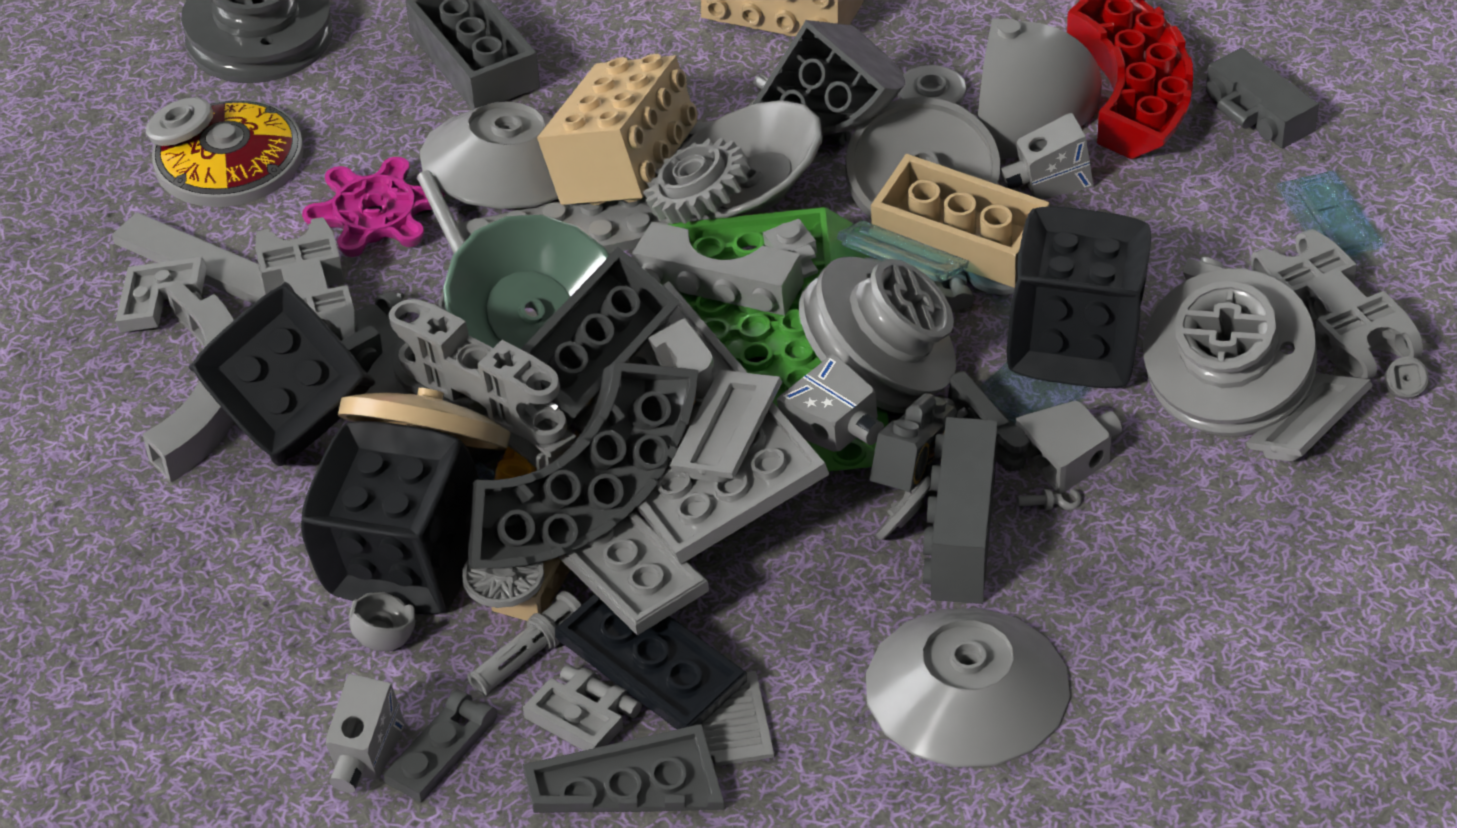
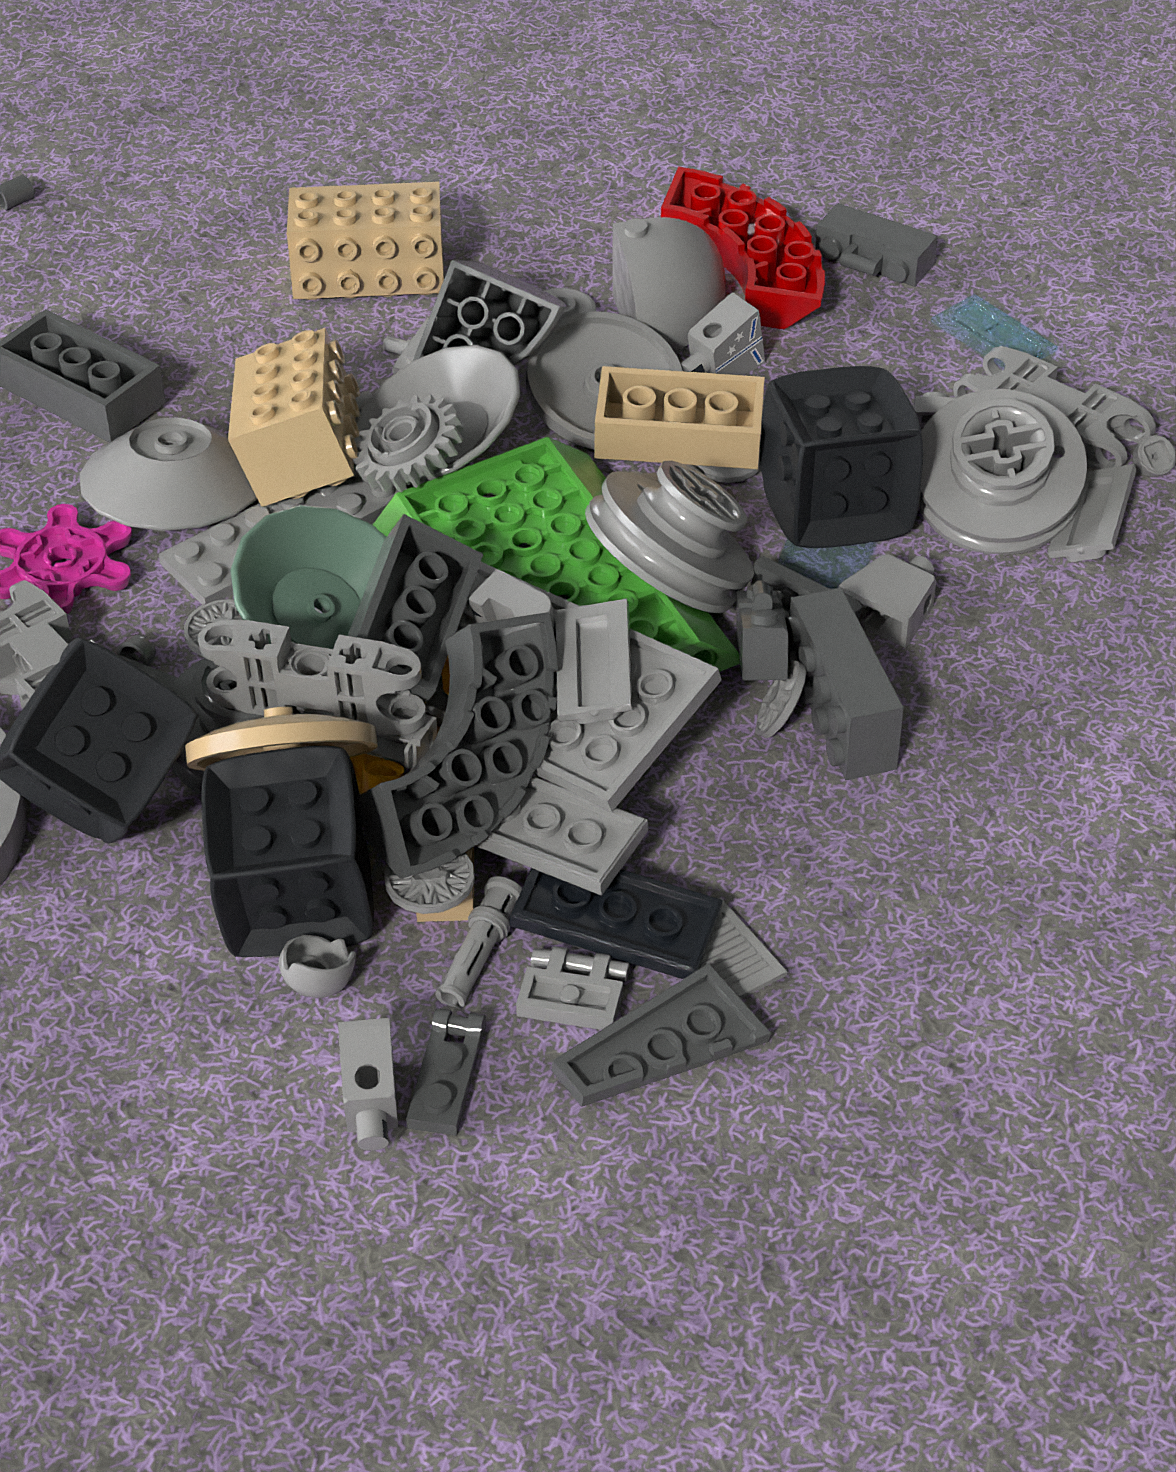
camera: 25 degrees left, 0 degrees up
(441, 210) = (158, 558): light grey bar -> none
(760, 280) = (528, 521): light grey arch -> none
(794, 238) = (541, 477): light grey plate -> none
(832, 406) = (683, 613): light grey torso -> none
(890, 245) = (636, 459): clear light blue piece -> none
(967, 687) = (930, 851): light grey dish -> none
(1047, 499) = (902, 654): light grey hand -> none

